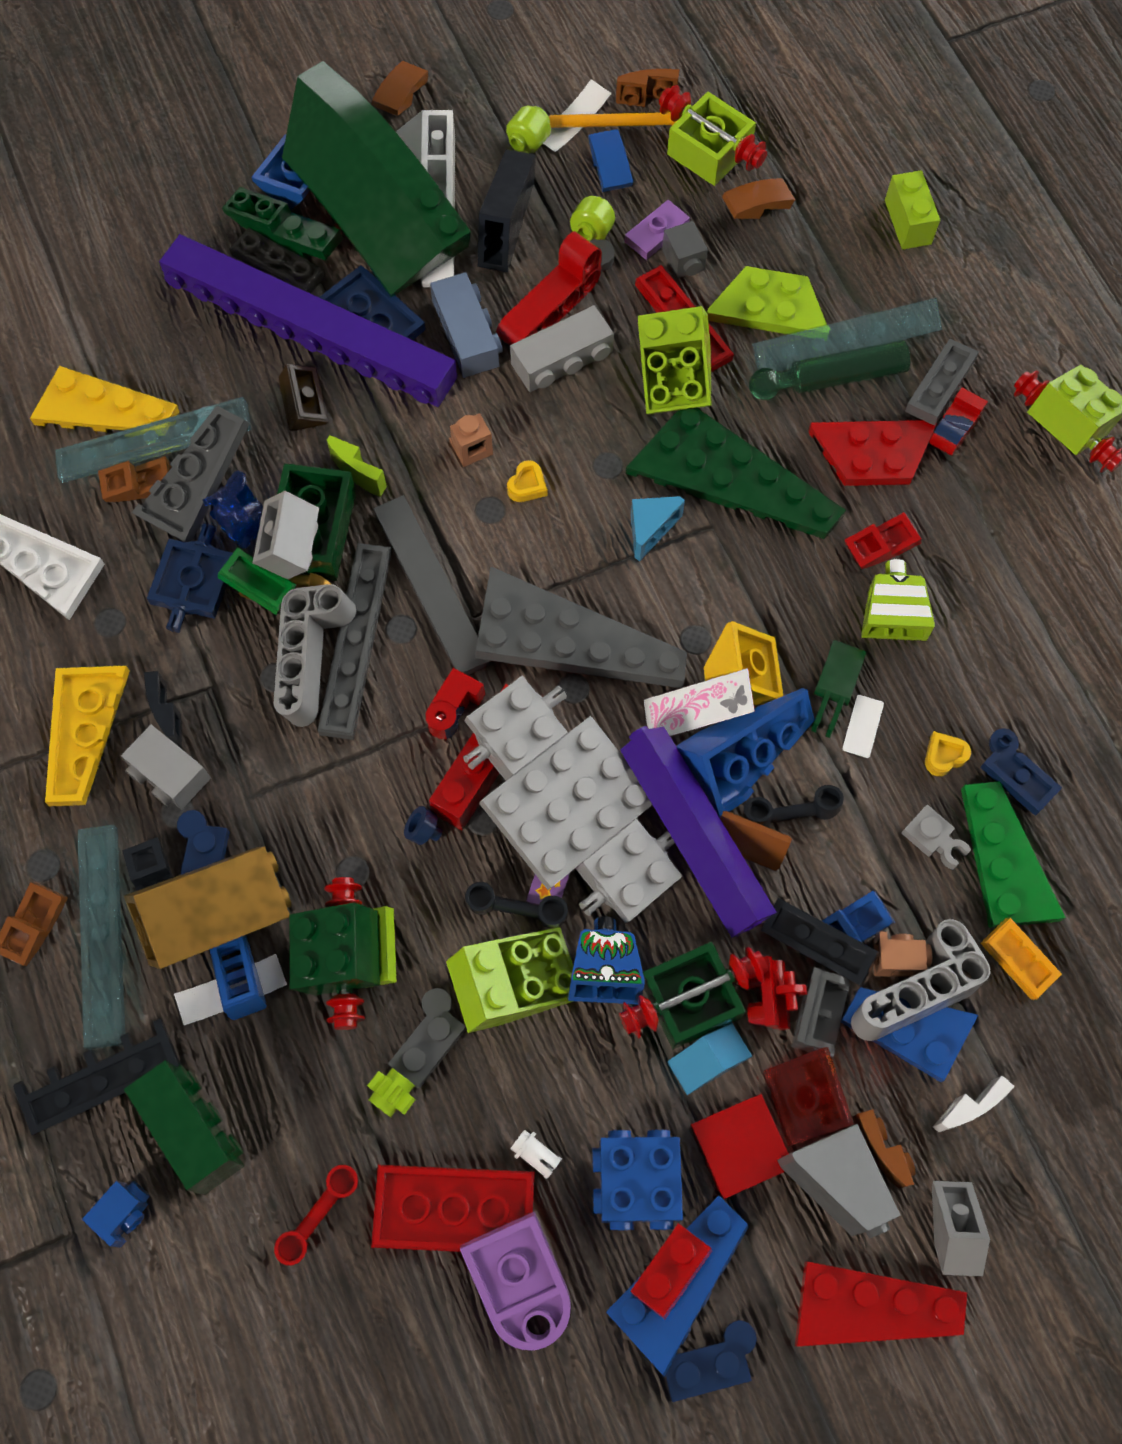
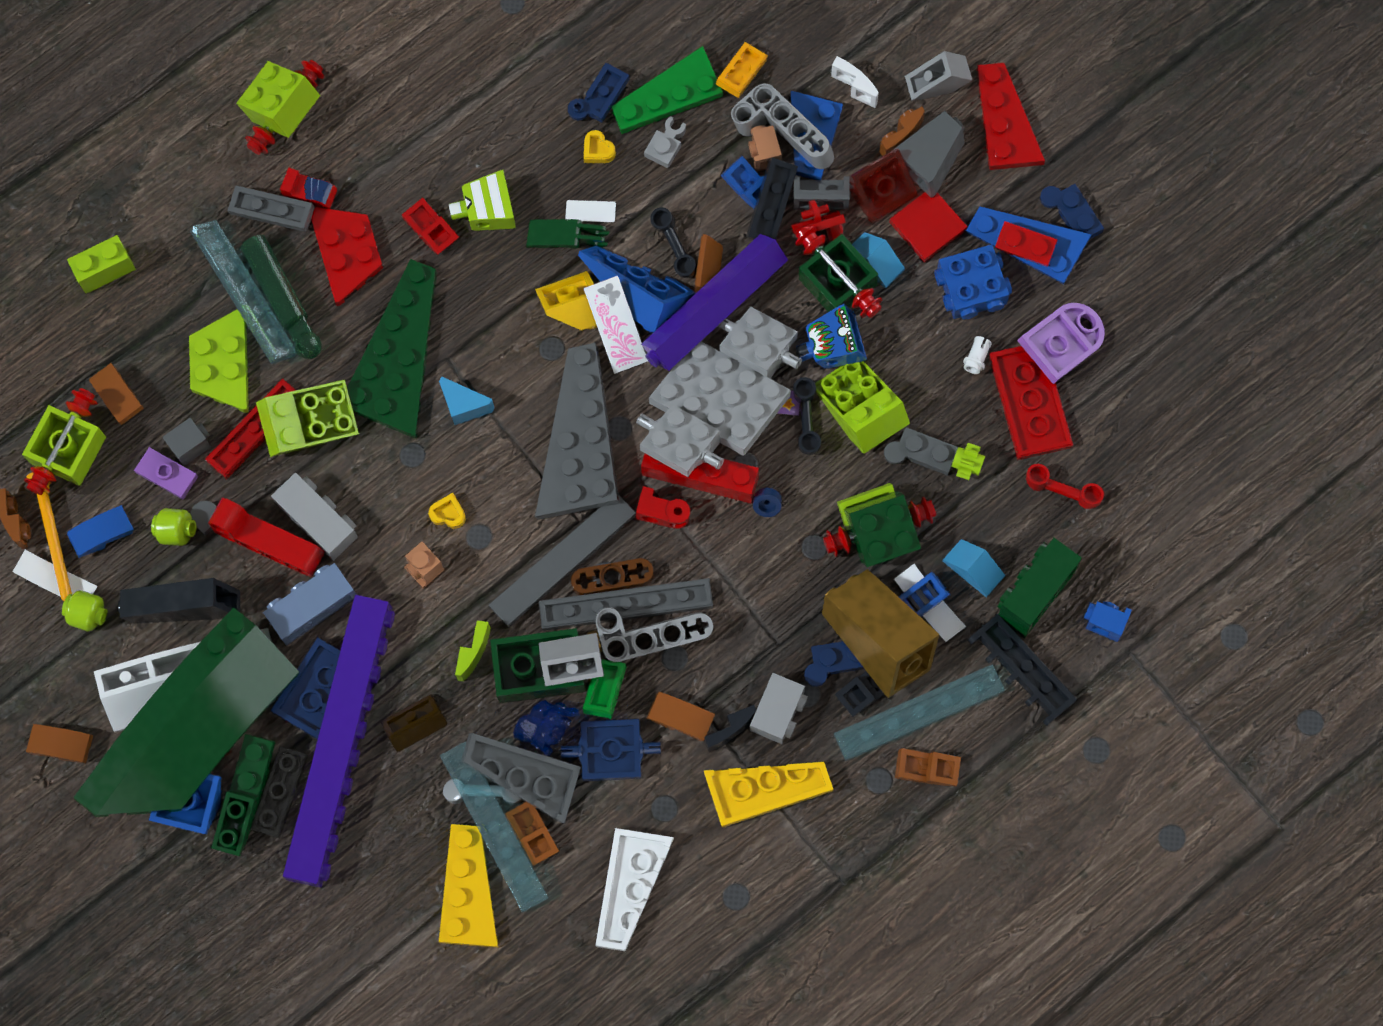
camera: 100 degrees left, 5 degrees up
(199, 659) = (680, 716): none -> dark orange slope
(254, 1058) = (974, 566): none -> dark azure slope
(385, 618) = (632, 566): none -> reddish brown beam

